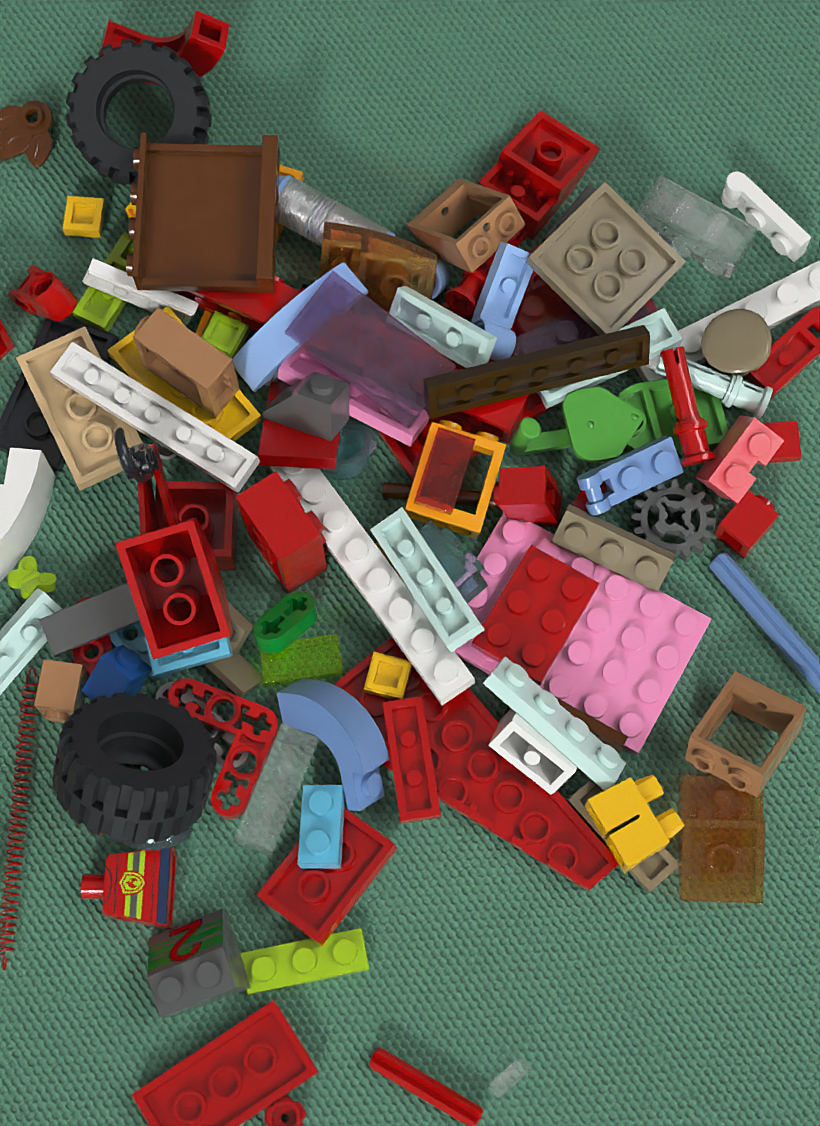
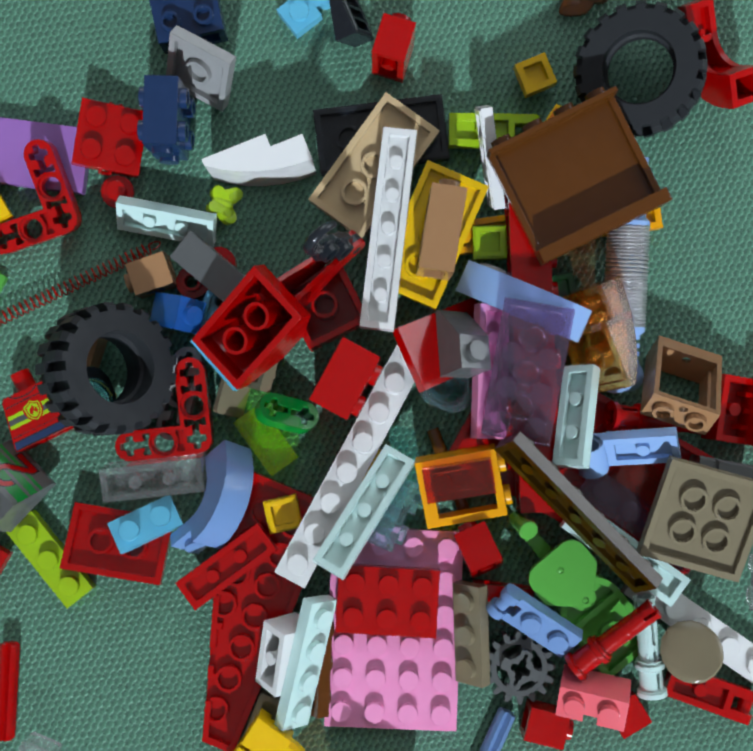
camera: 60 degrees right, 15 degrees up
(44, 295) = (451, 83): red piece -> none

